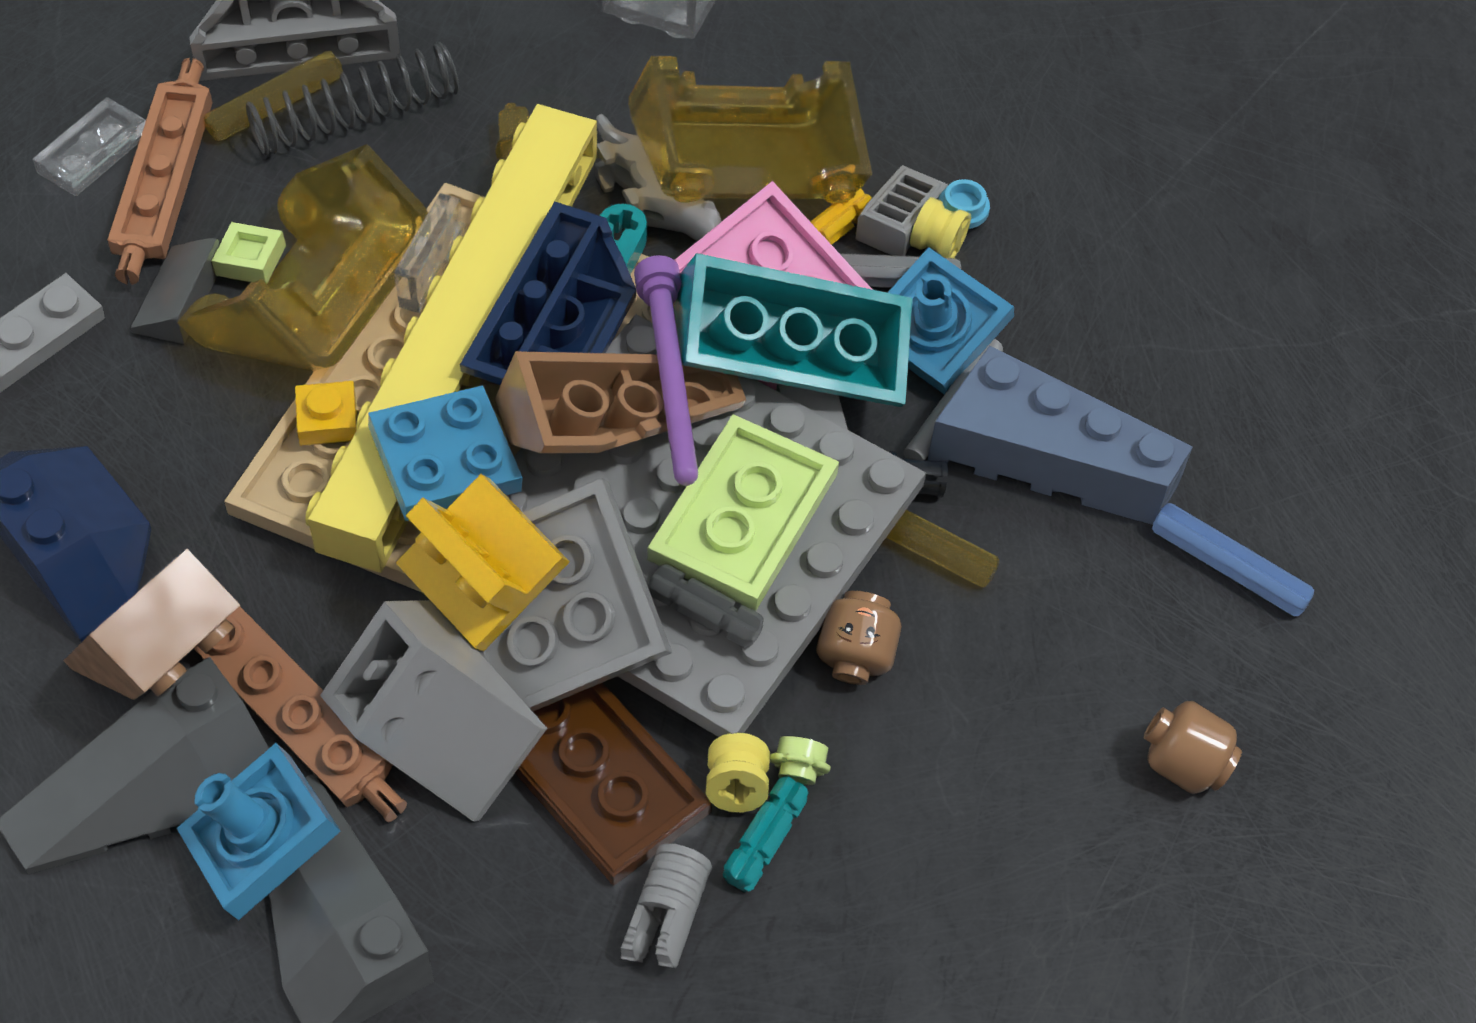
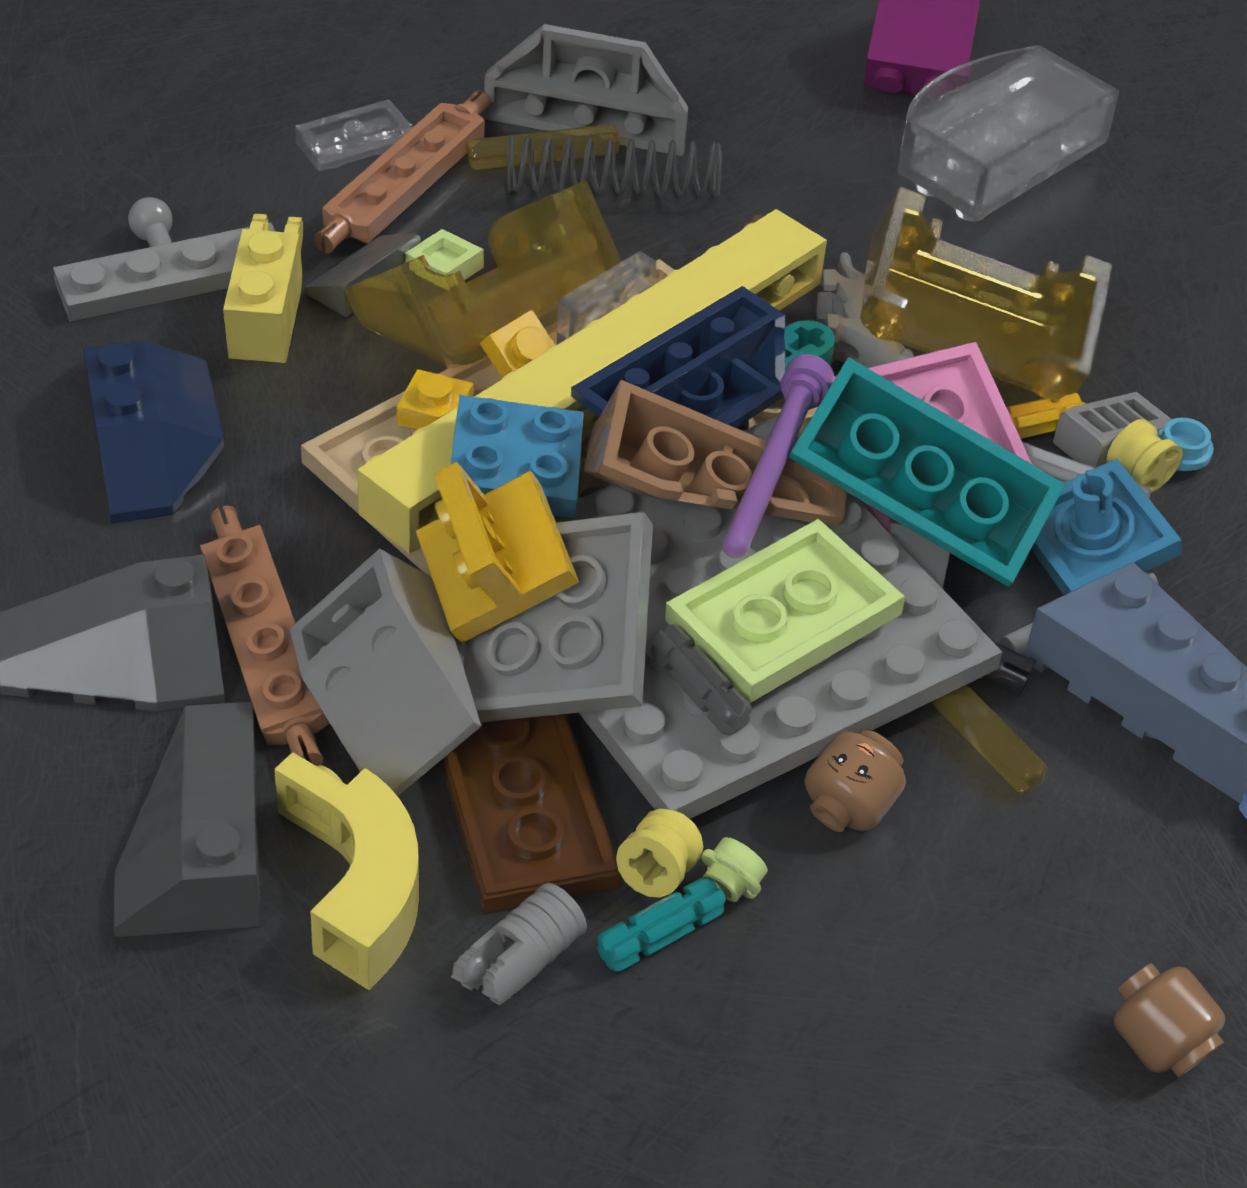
camera: 25 degrees right, 10 degrees down
(103, 351) = (264, 291): none -> light yellow hinge
(156, 629) = (163, 501): slope -> none
(255, 829) = (162, 713): dark azure plate -> none
(377, 329) = (517, 343): none -> yellow plate
(511, 874) = (375, 905): none -> light yellow arch

